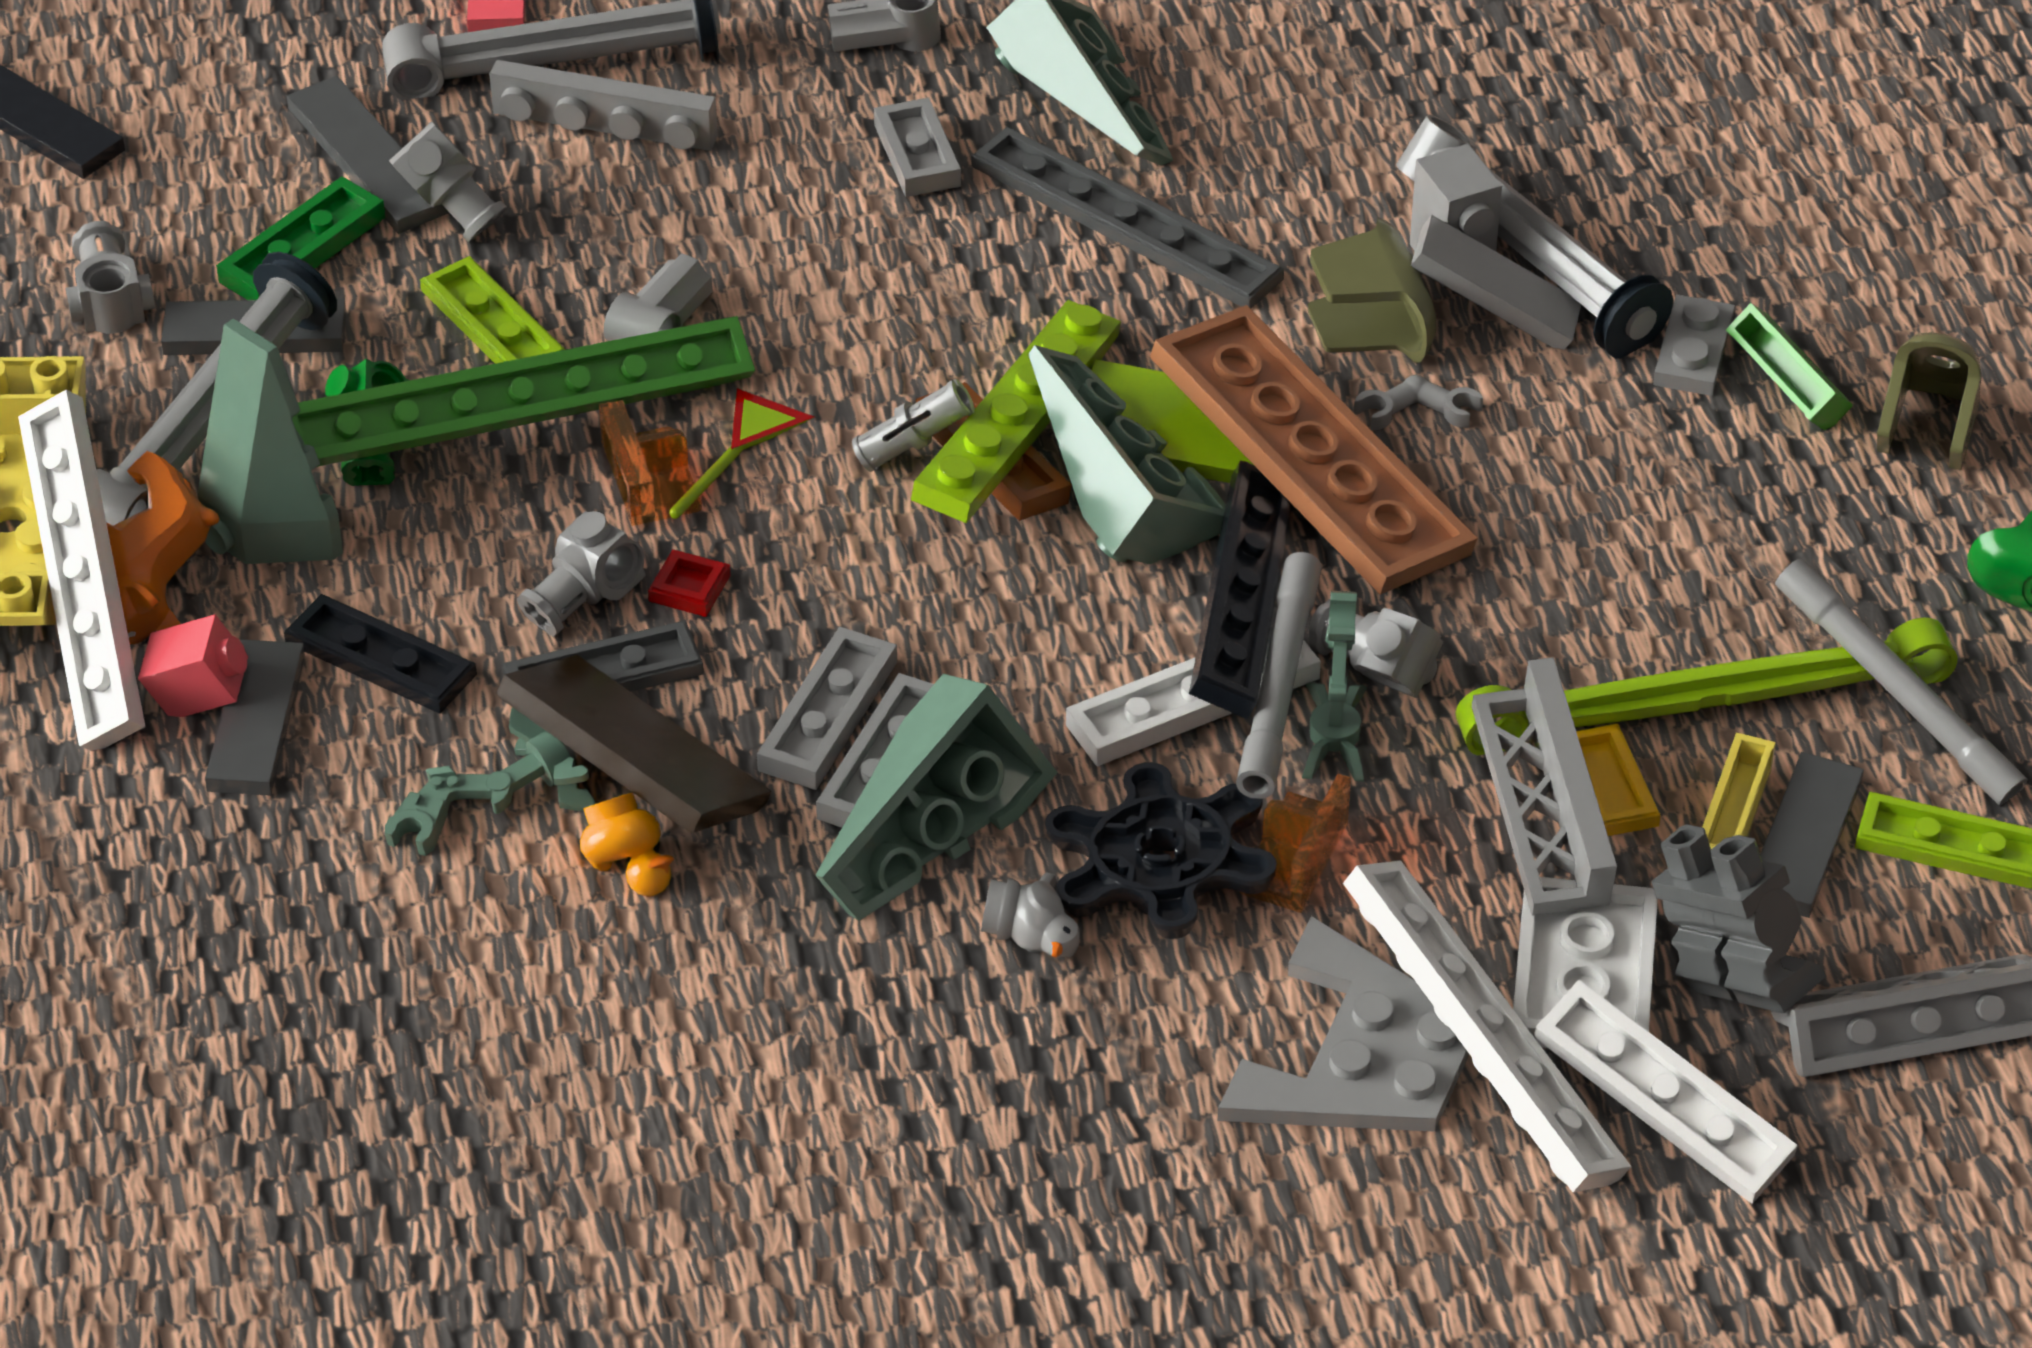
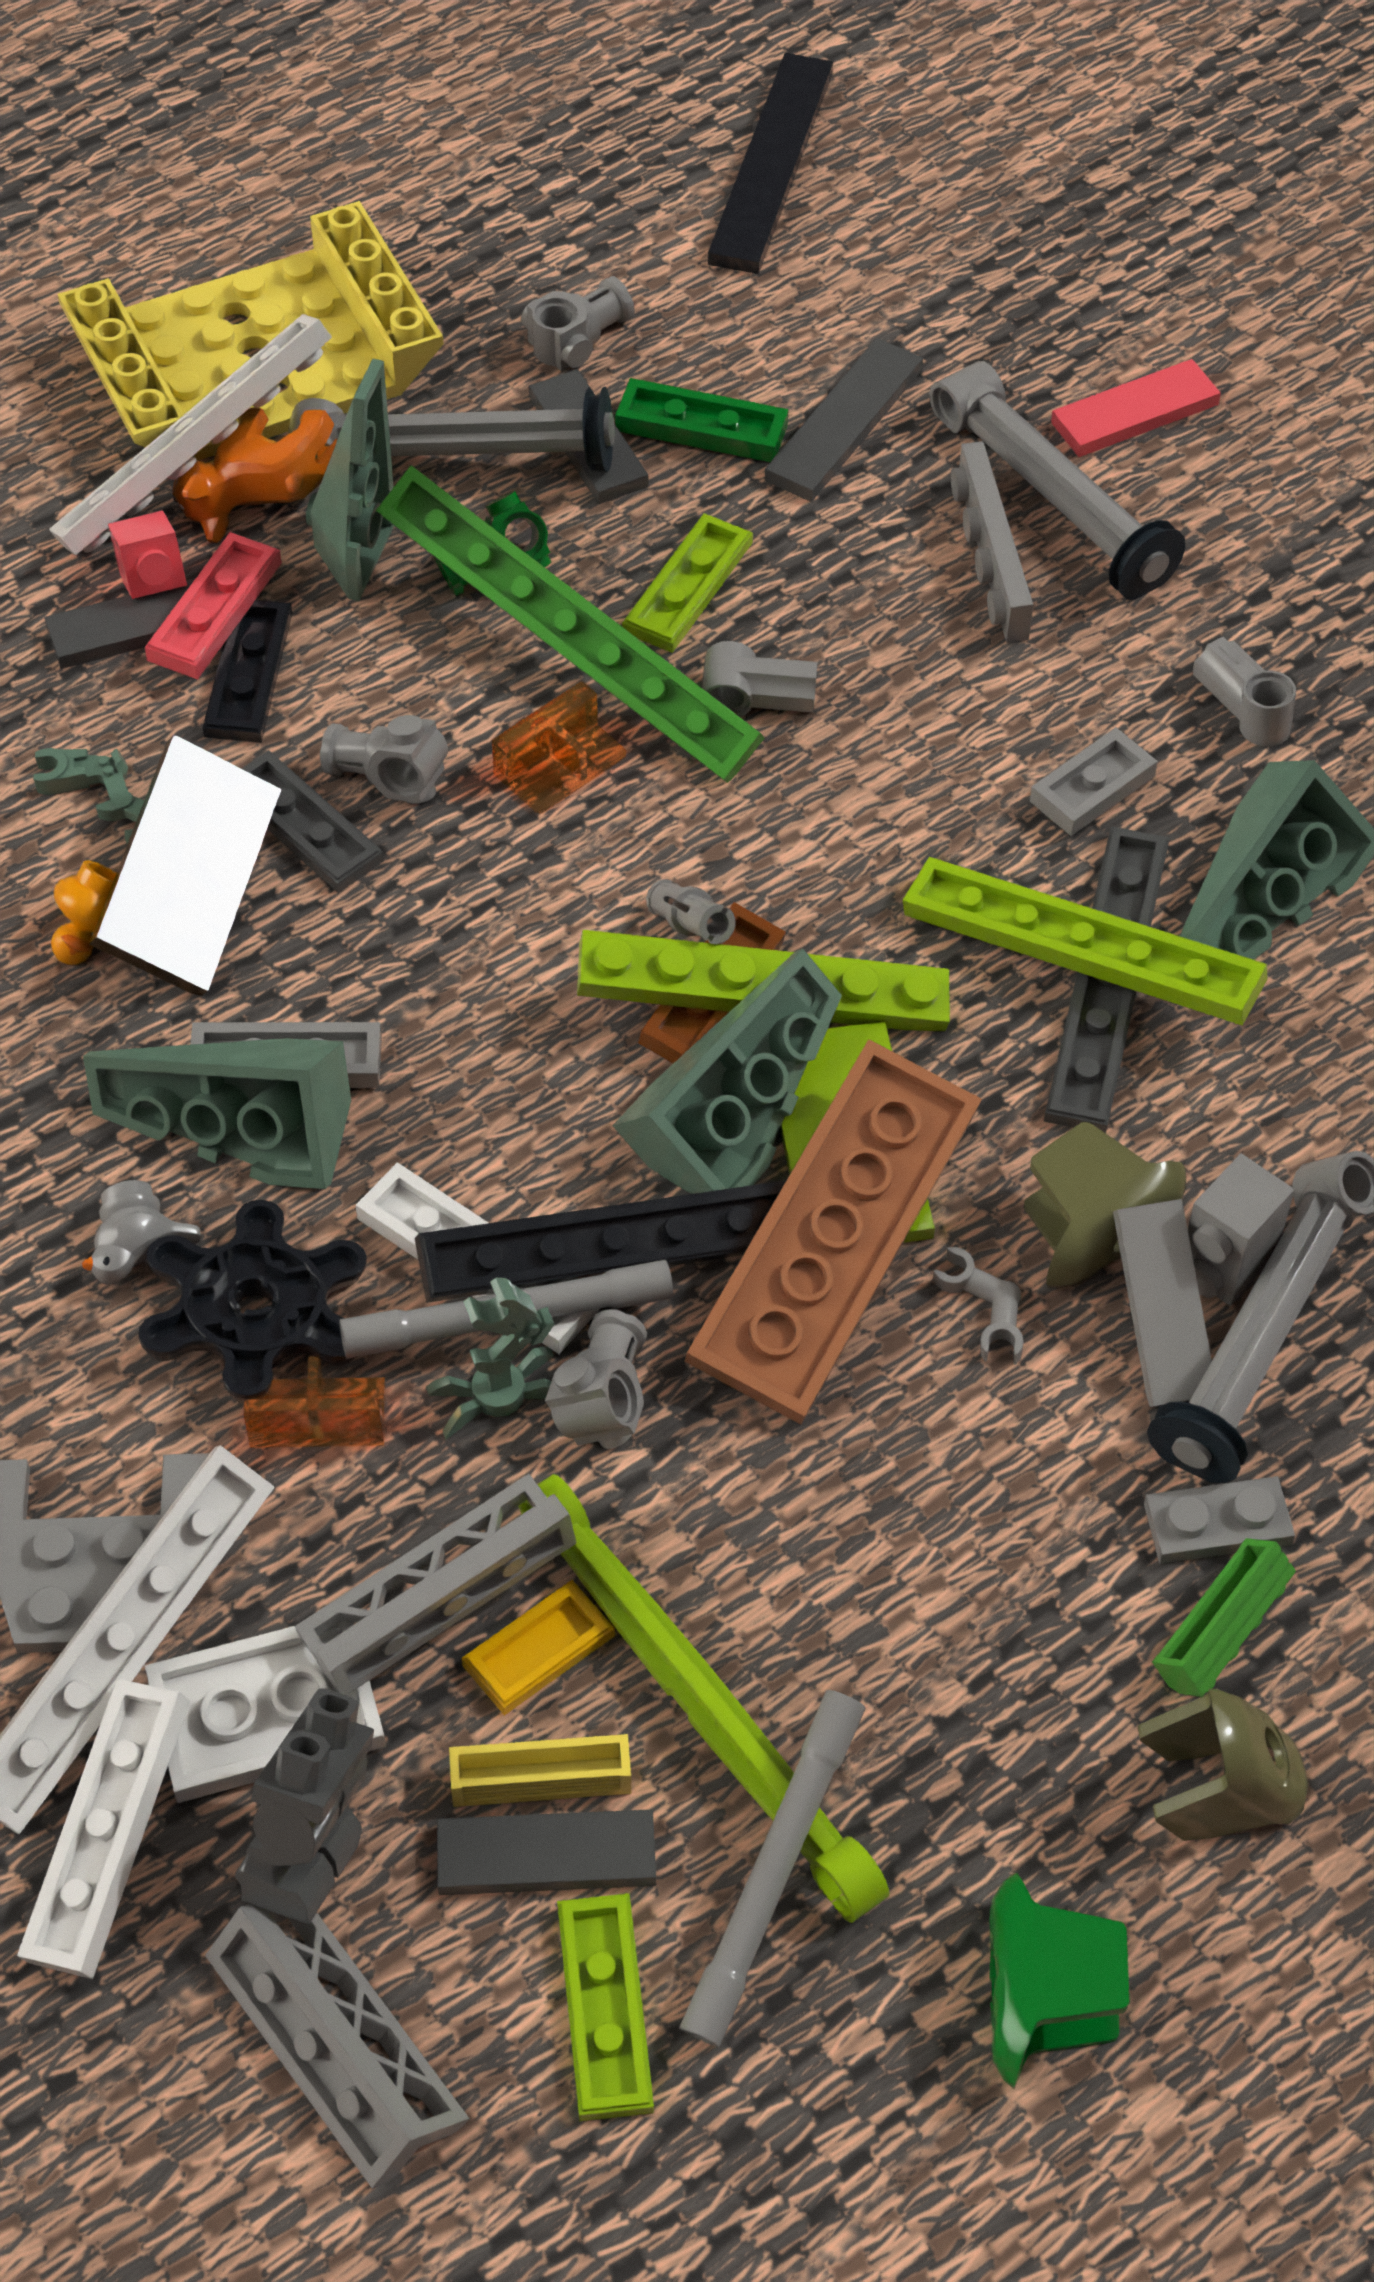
camera: 65 degrees right, 10 degrees up
(293, 642) = (213, 605): none -> coral tile
(445, 178) = (810, 461): light grey connector -> none
(689, 583) = (437, 838): red tile -> none
(754, 423) = (671, 810): lime piece -> none
(827, 708) = (323, 990): light grey plate -> none
(1097, 203) = (1086, 940): none -> lime plate

